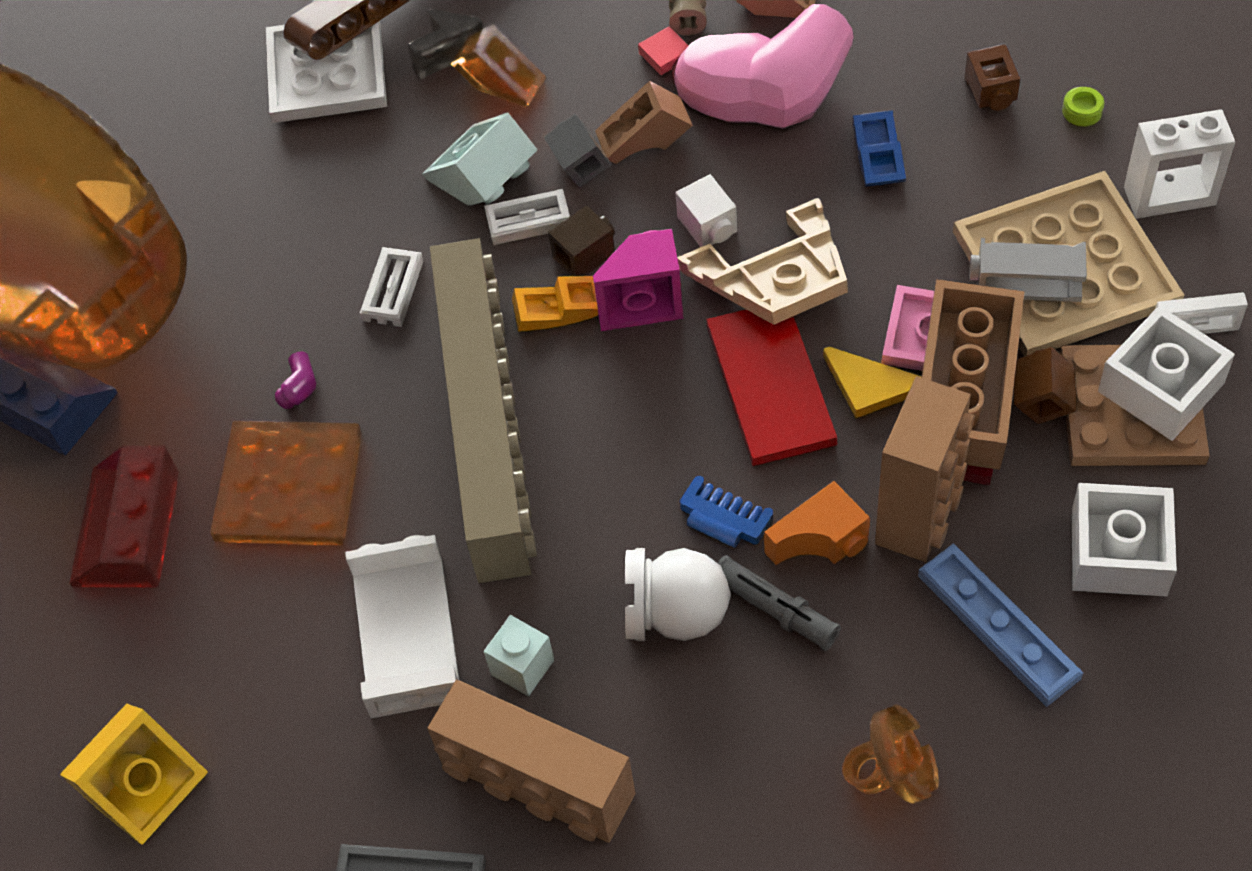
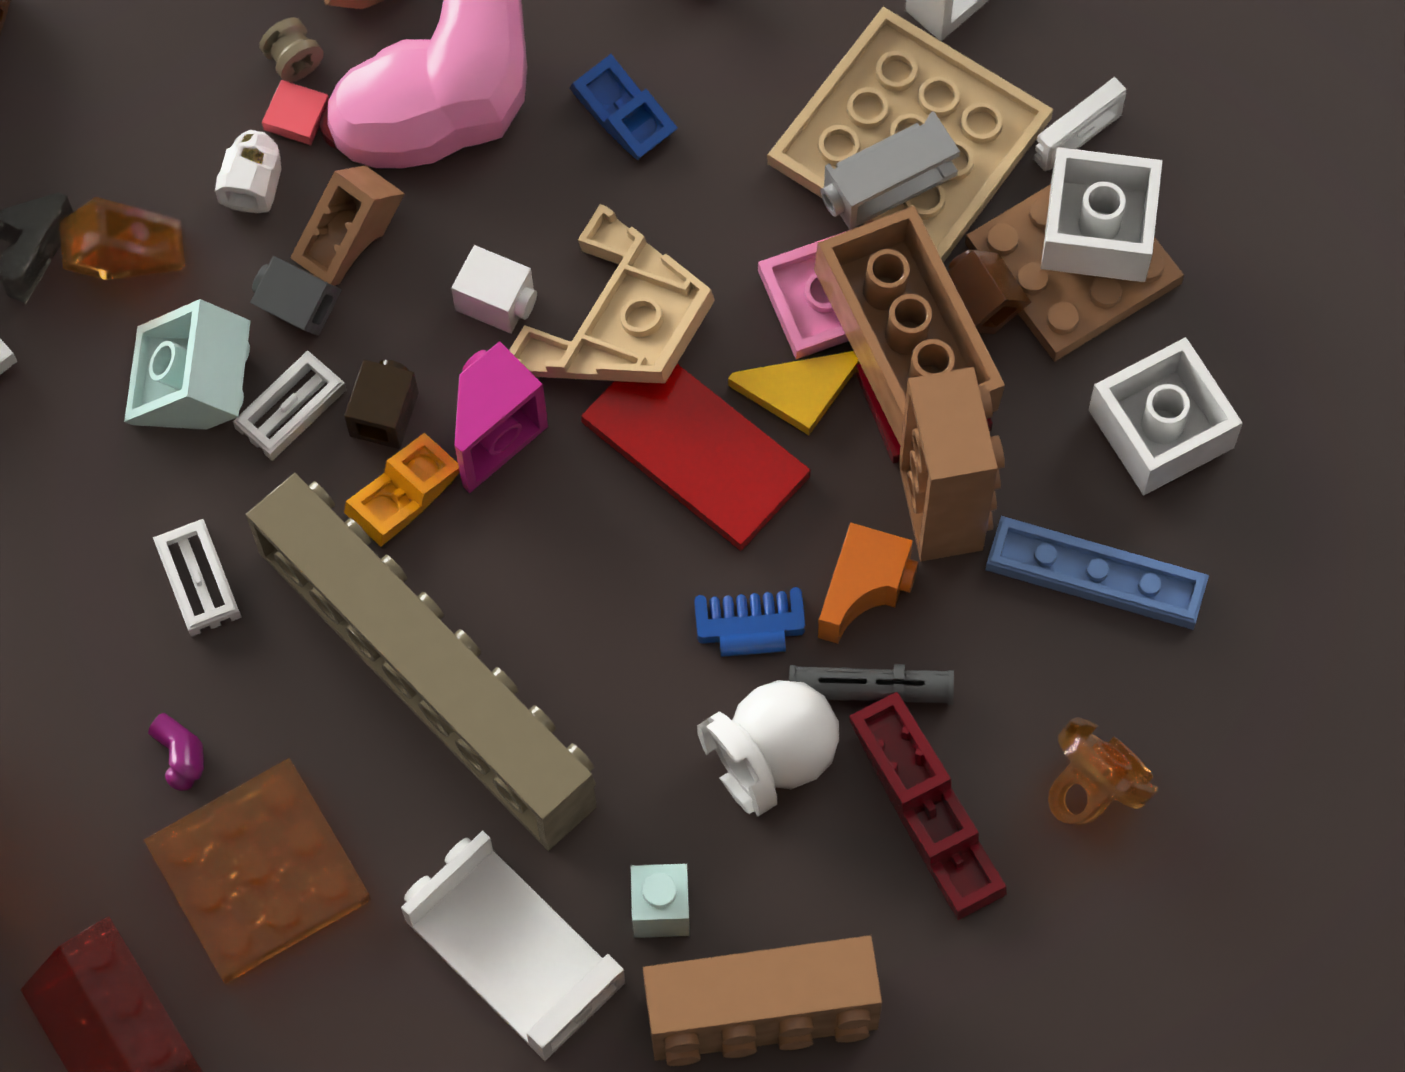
camera: 40 degrees left, 10 degrees up
(607, 70) = (249, 173): none -> white rock
(754, 709) = (928, 805): none -> dark red slope

